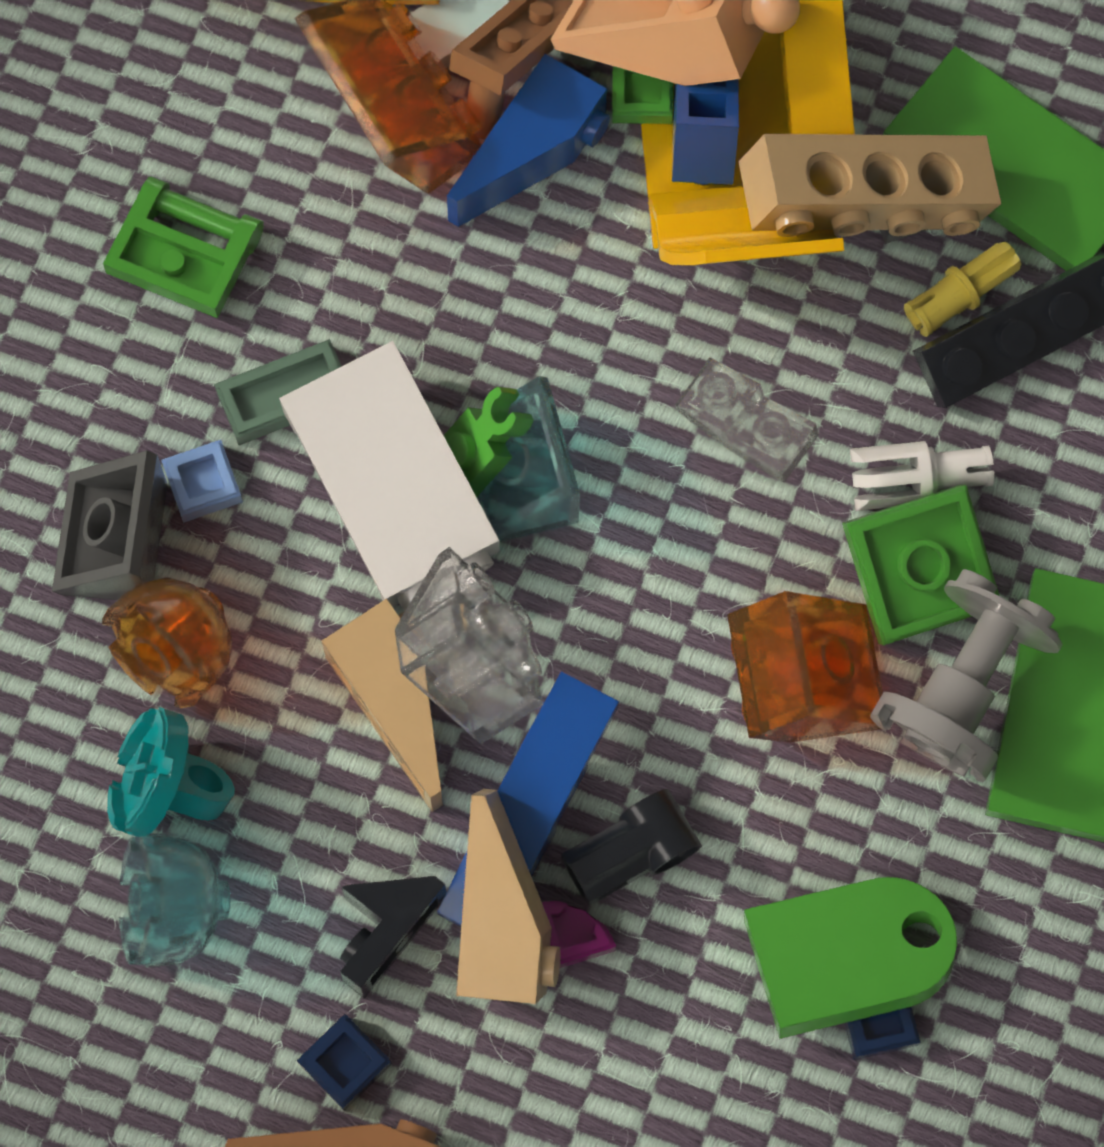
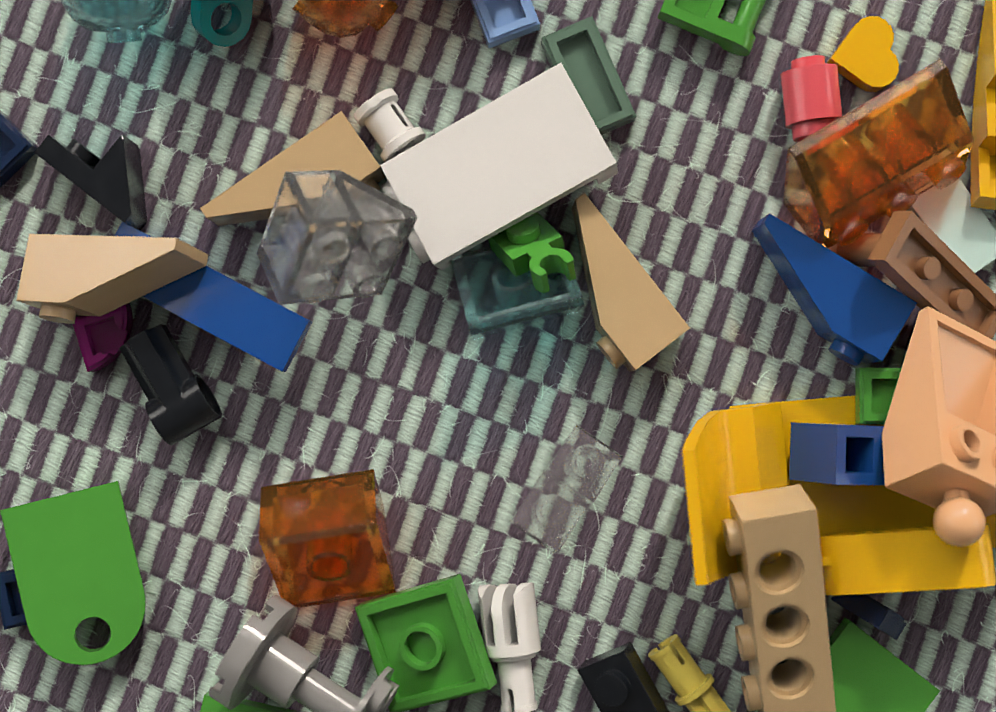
camera: 85 degrees right, 15 degrees up
(267, 105) = (867, 56): none -> yellow tile
(317, 157) = (810, 95): none -> coral brick
(334, 600) = (388, 124): none -> white bush
(552, 338) = (624, 299): none -> tan slope
(875, 107) = (873, 613): none -> dark blue tile

